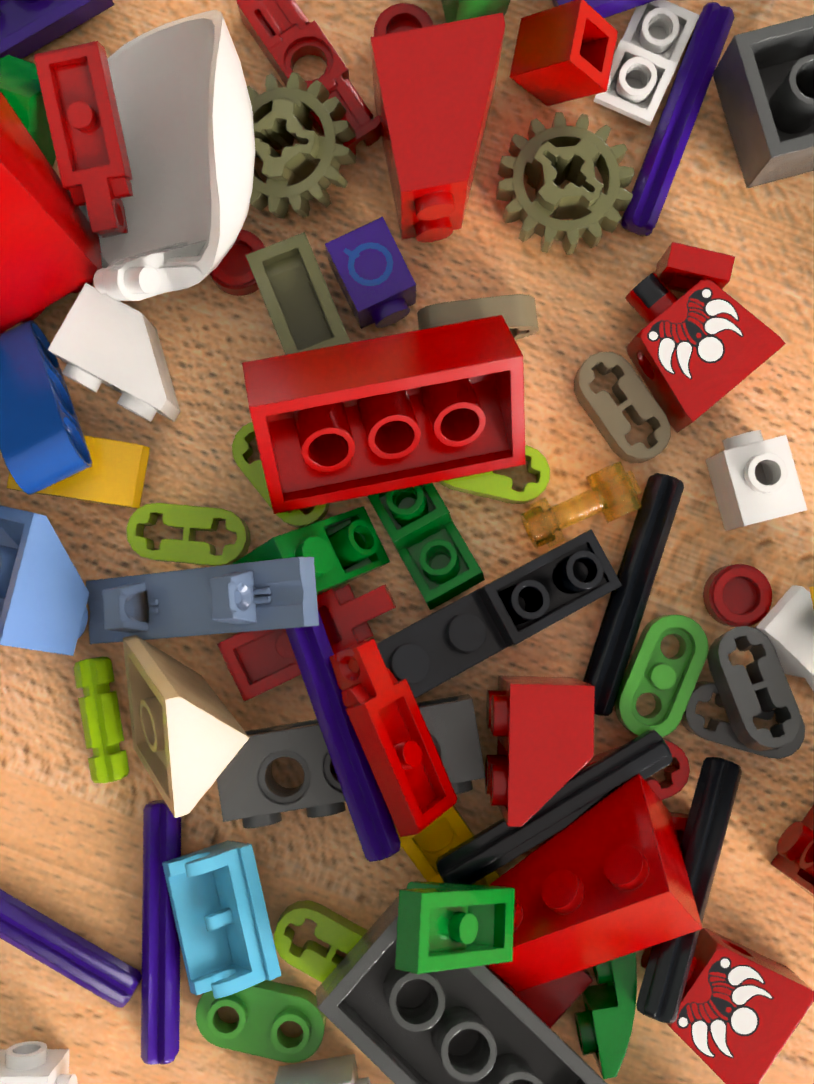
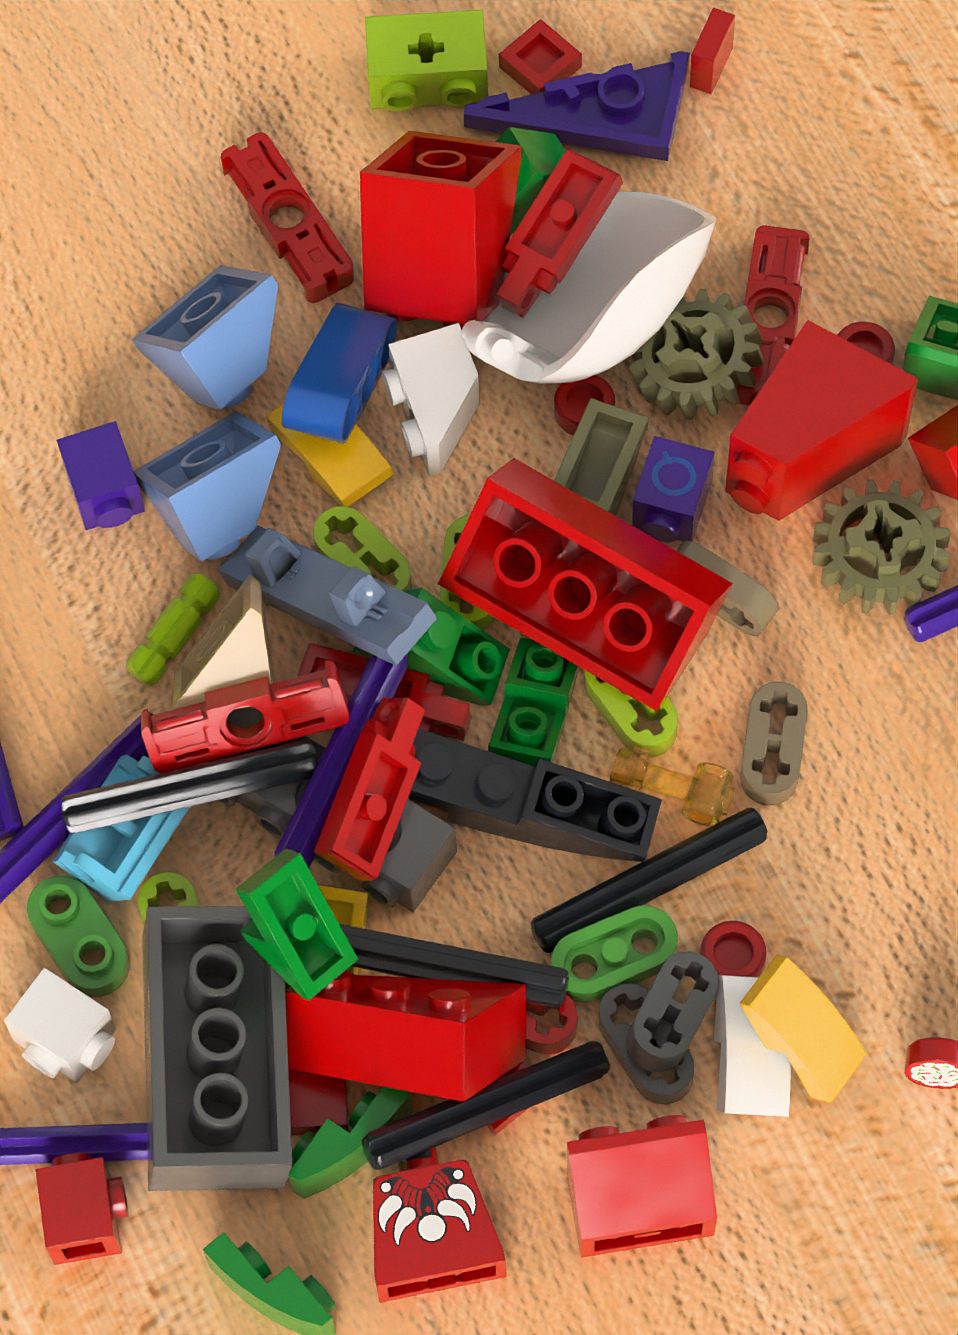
camera: 45 degrees right, 20 degrees down
(244, 859) = (189, 786): none -> black axle
(259, 749) = (204, 734): none -> red piece
(541, 741) = (477, 892): red slope -> none
(686, 265) = (920, 687): red tile -> none
(695, 346) = (870, 744): torso -> none
(755, 480) = (821, 875): white brick -> none

